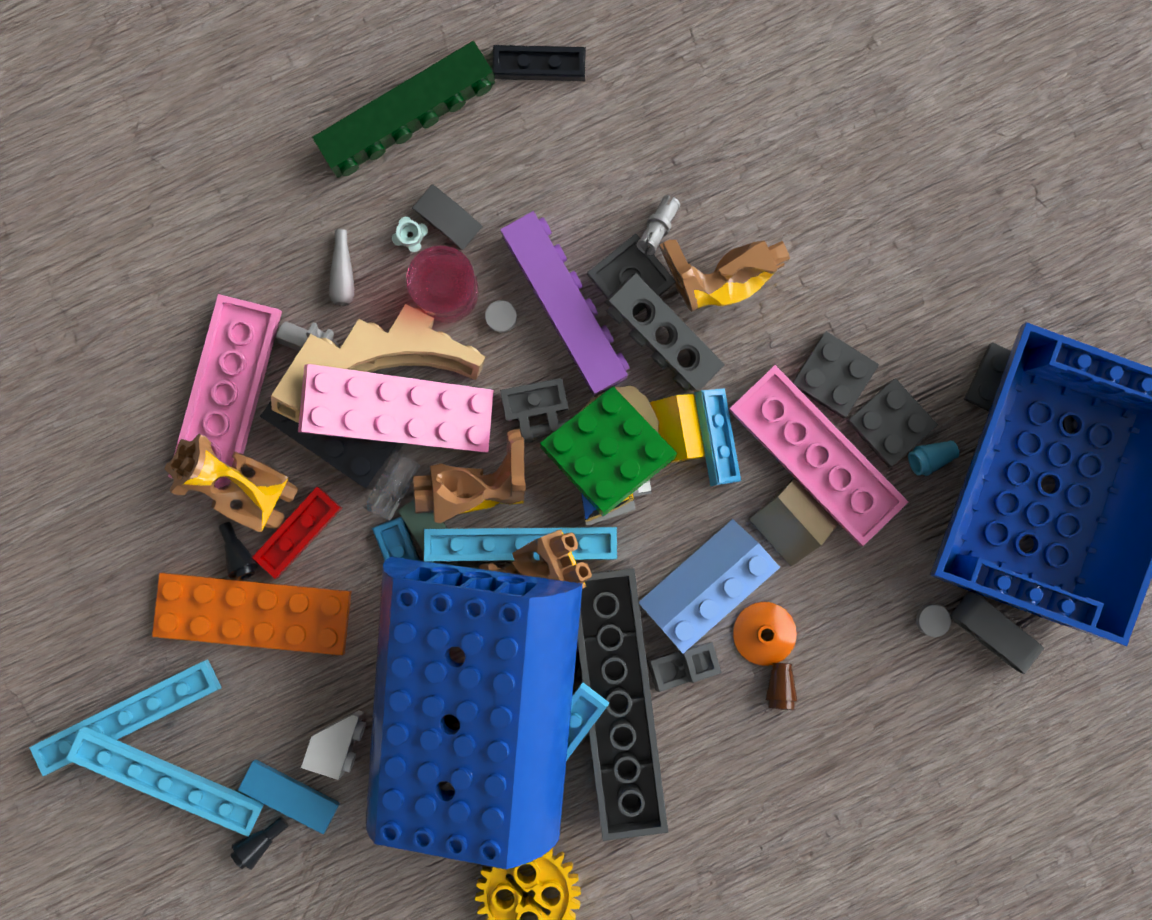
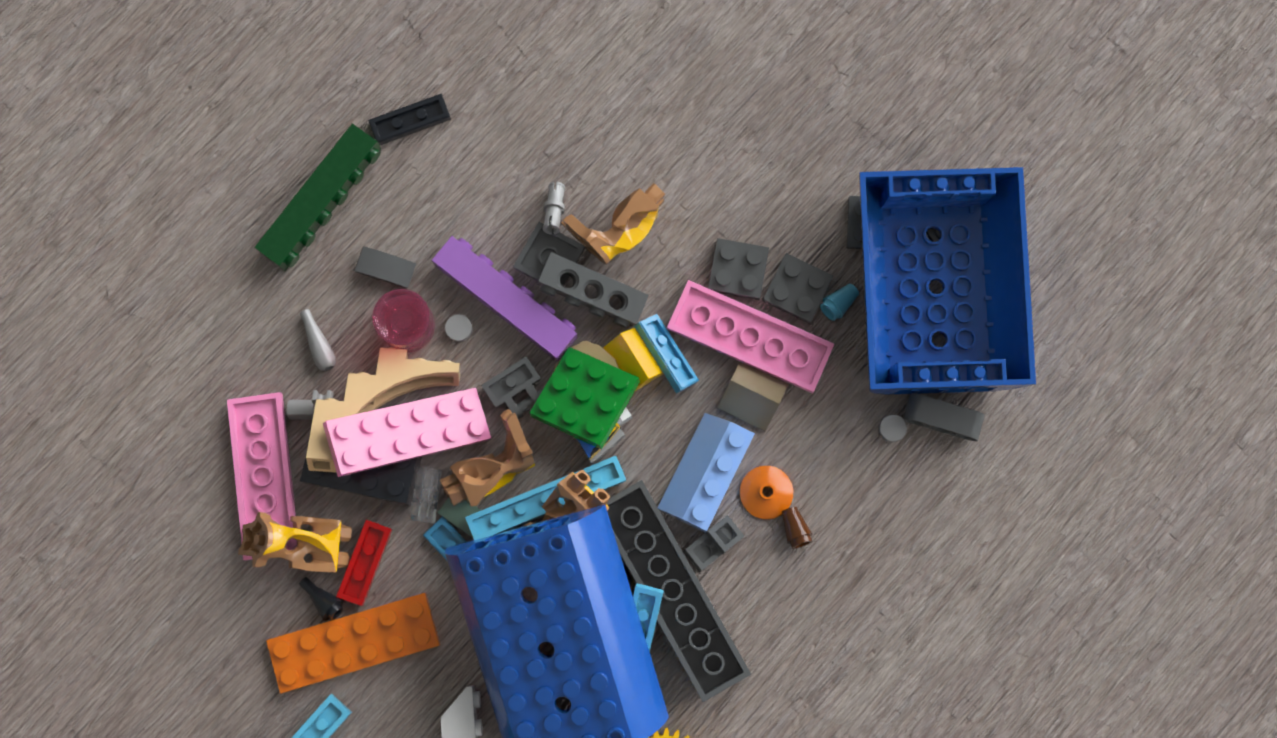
camera: 25 degrees left, 5 degrees down
(405, 226) = (356, 286): light aqua plate -> none

